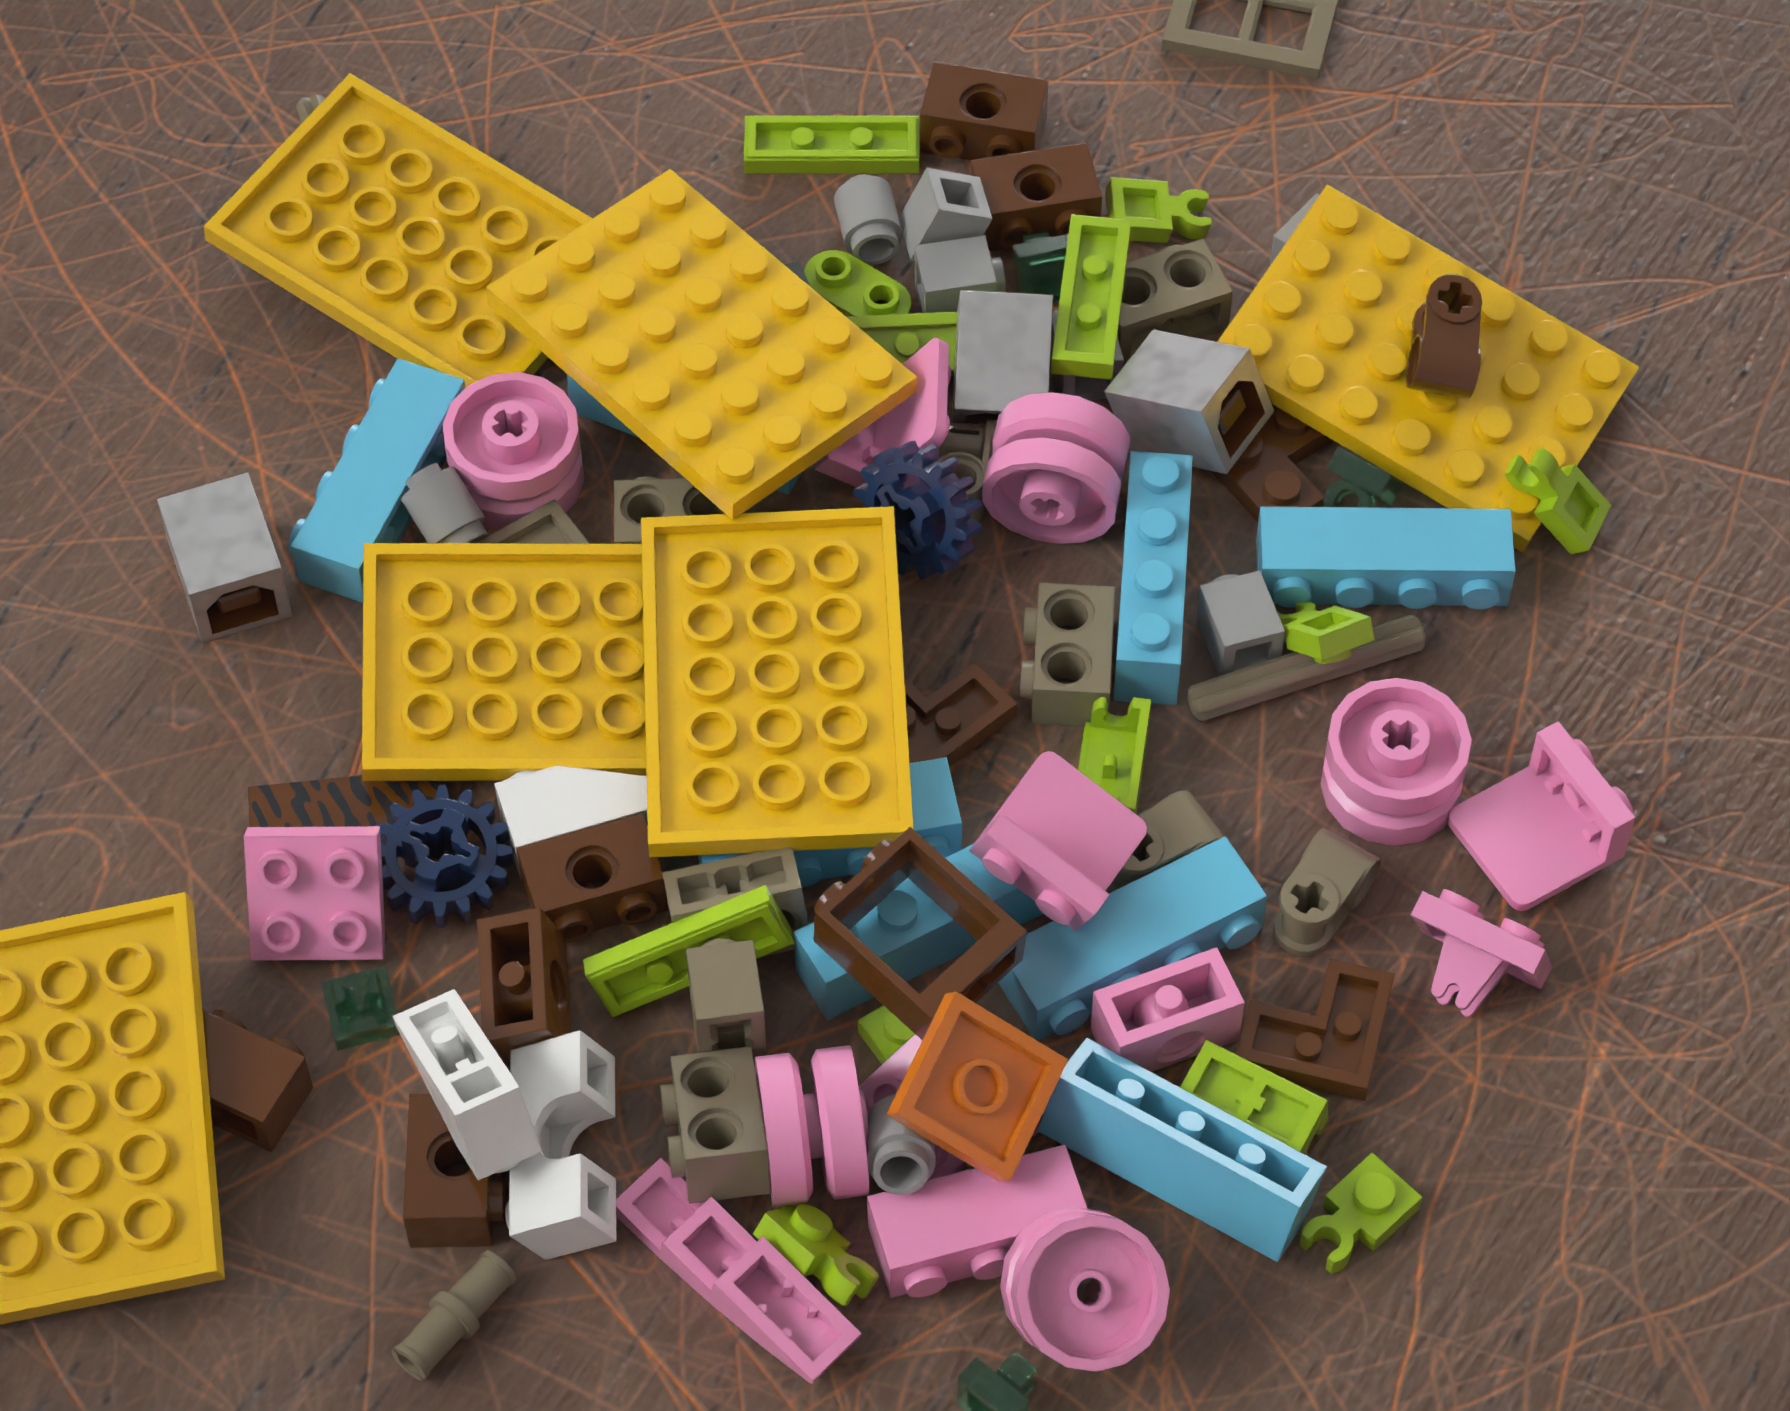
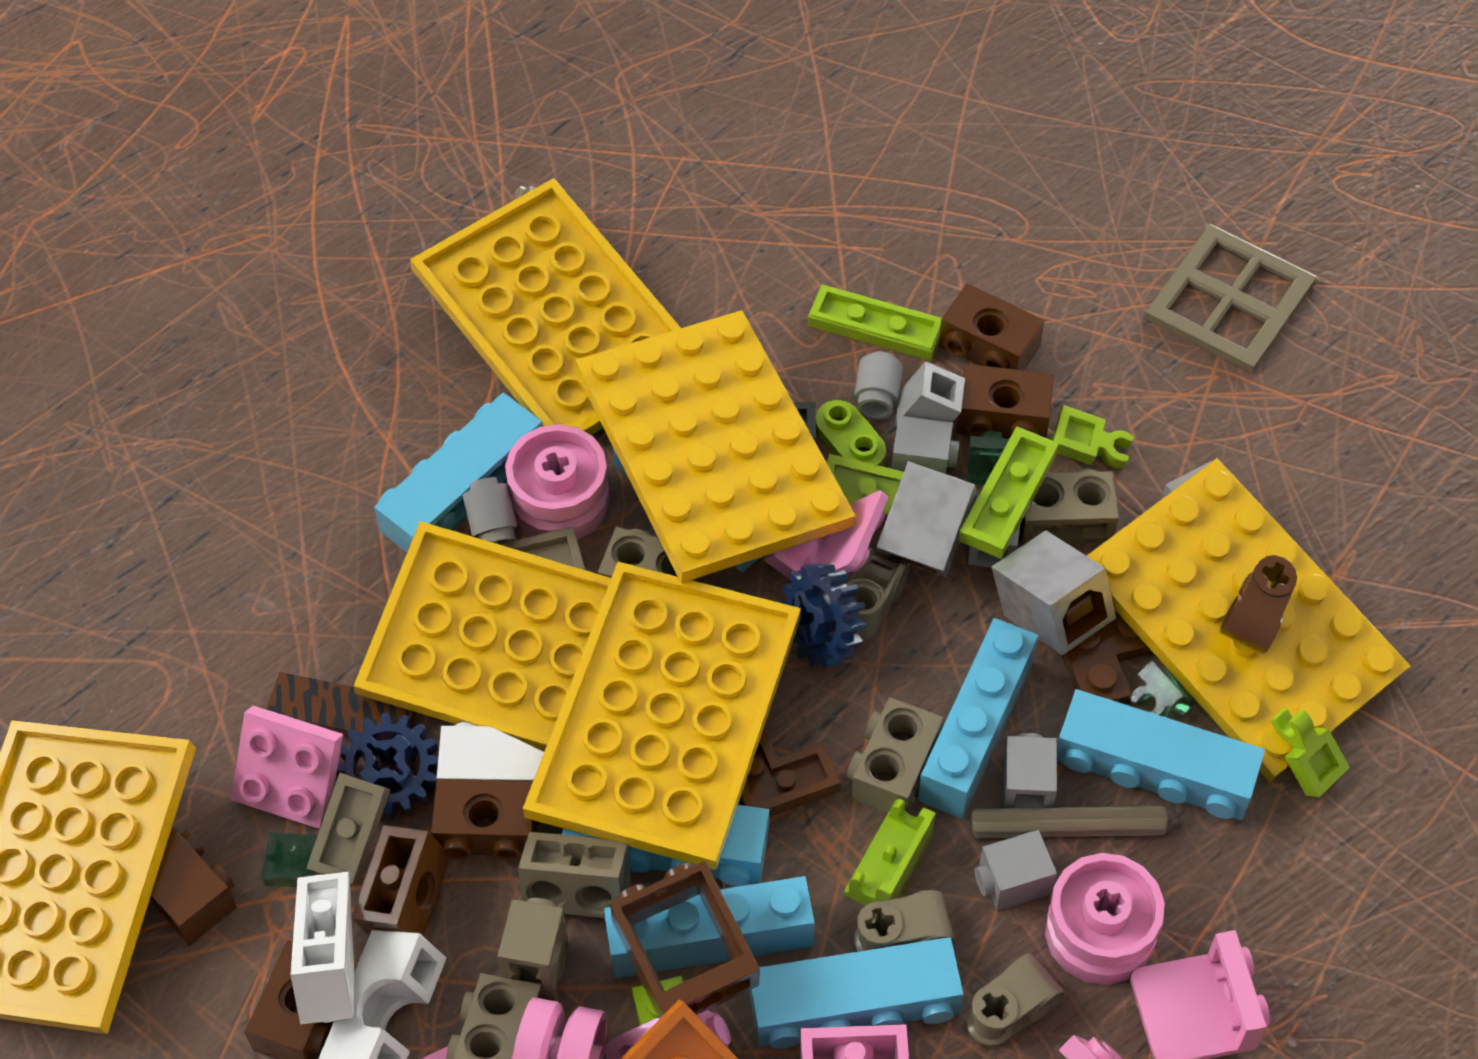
camera: 20 degrees right, 0 degrees up
(225, 557) = (329, 500): flat silver piece -> none
(428, 936) = (348, 827): none -> dark tan plate
(658, 961) = (490, 896): lime tile -> none
(1056, 468) = (935, 613): bright pink wheel -> none
(1060, 840) = (819, 903): bright pink bracket -> none
(1268, 740) = (1016, 870): none -> light grey brick
(1325, 633) = (1087, 802): lime plate -> none

